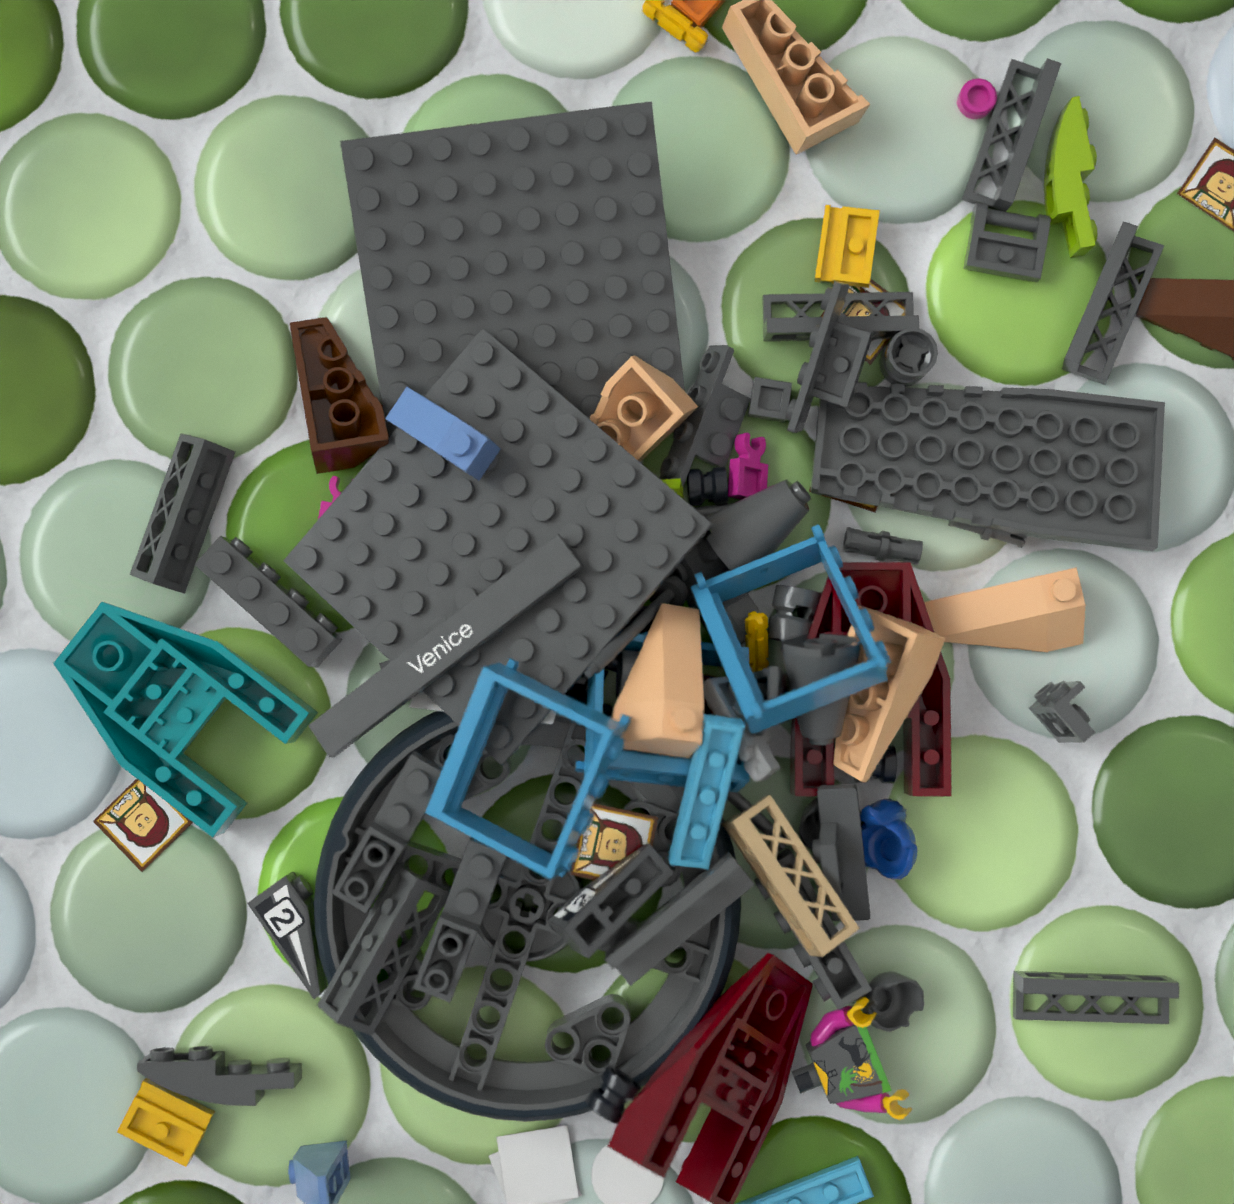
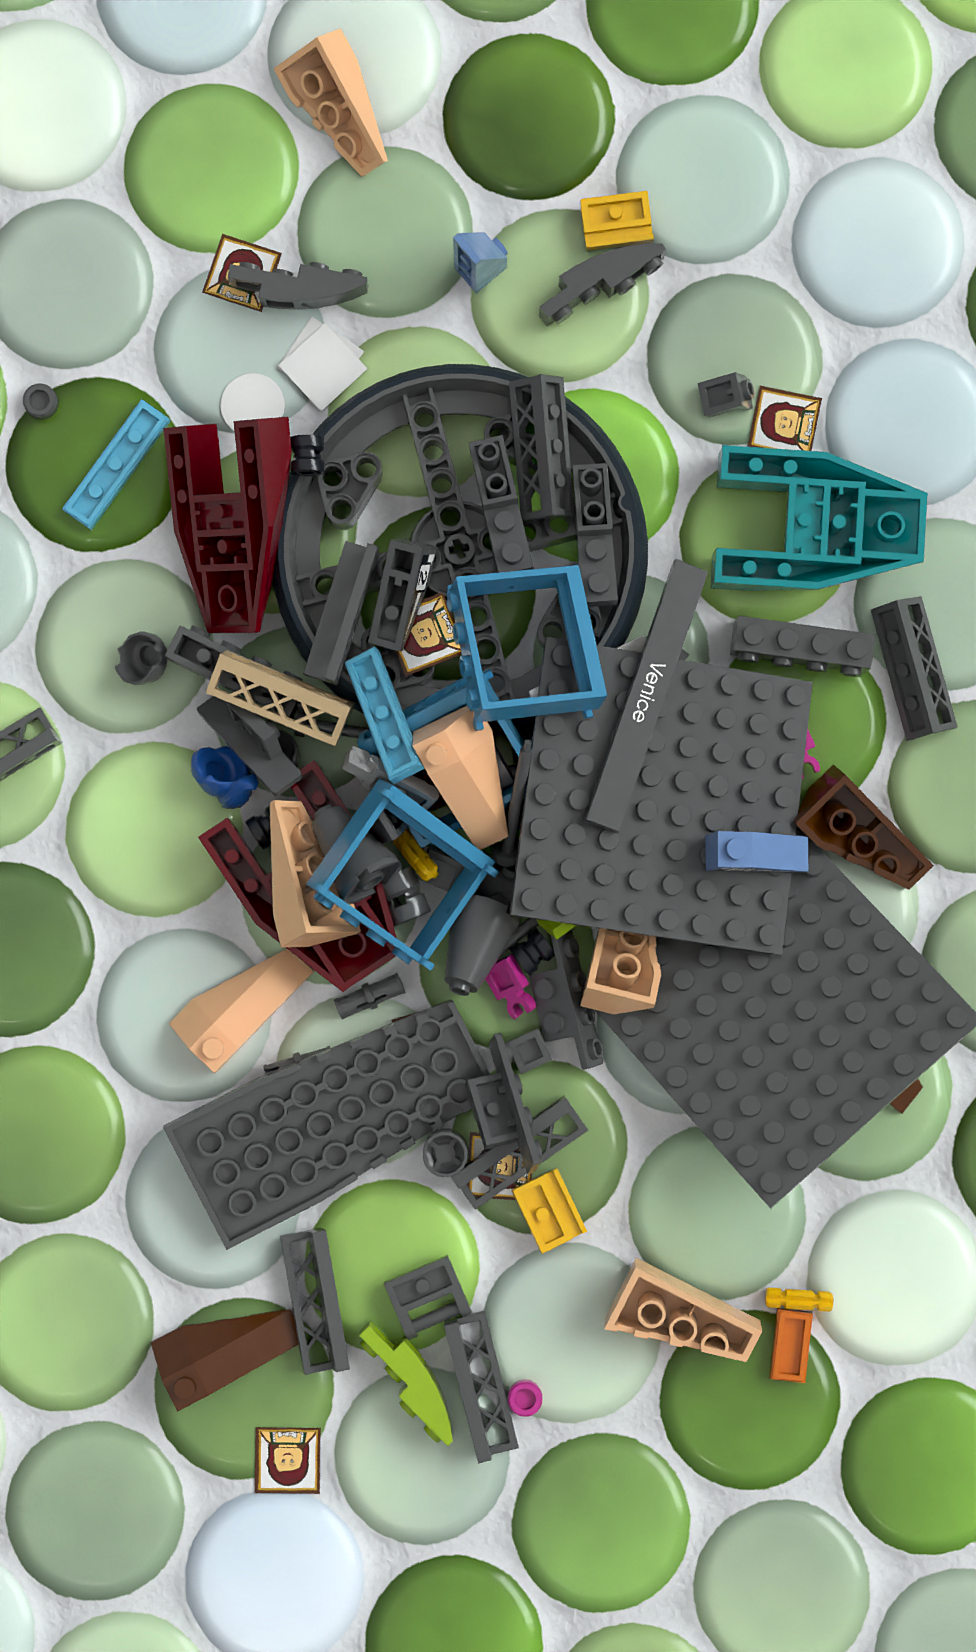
camera: 145 degrees right, 0 degrees up
(178, 884) = (726, 394): none -> dark grey bracket
(289, 920) = (624, 422): slope -> none
(848, 1064) = (144, 591): torso -> none
(1064, 721) = (151, 952): dark grey bracket -> none

